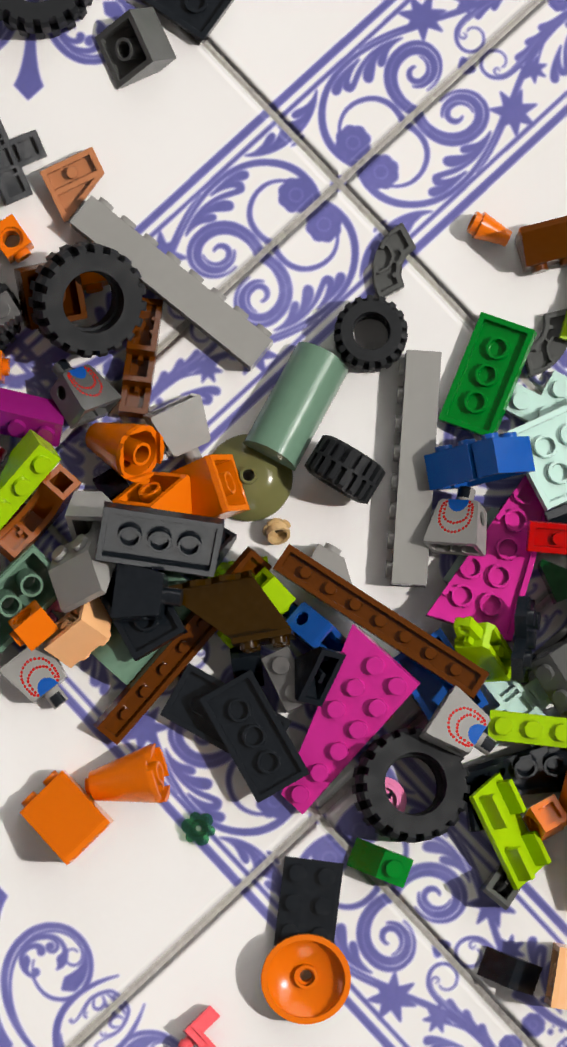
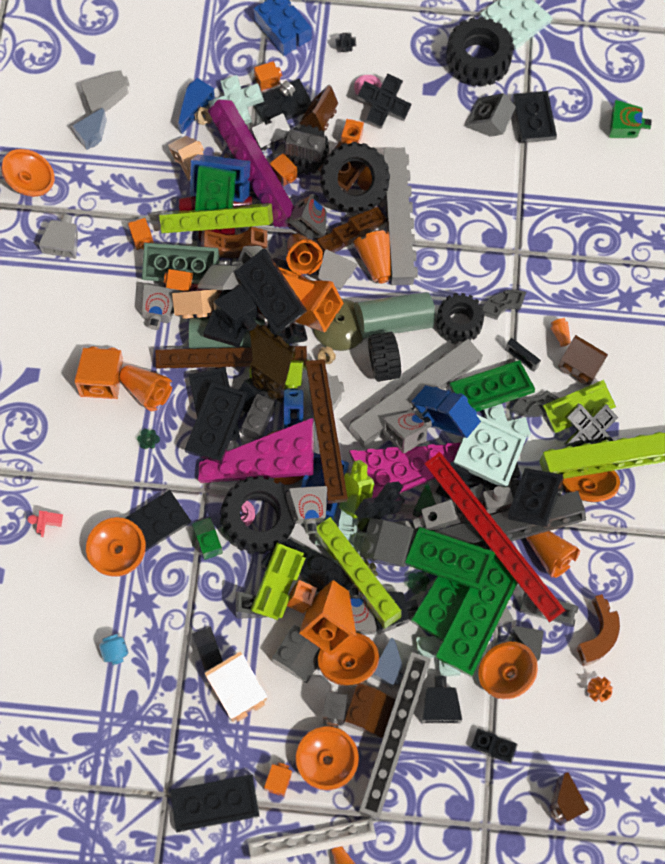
camera: 45 degrees right, 15 degrees down
(72, 181) = (405, 137): nougat wing -> none
(203, 359) = (376, 254): none -> orange cone
(316, 673) = (272, 422): black slope -> none
(477, 302) = (522, 354): none -> black tile

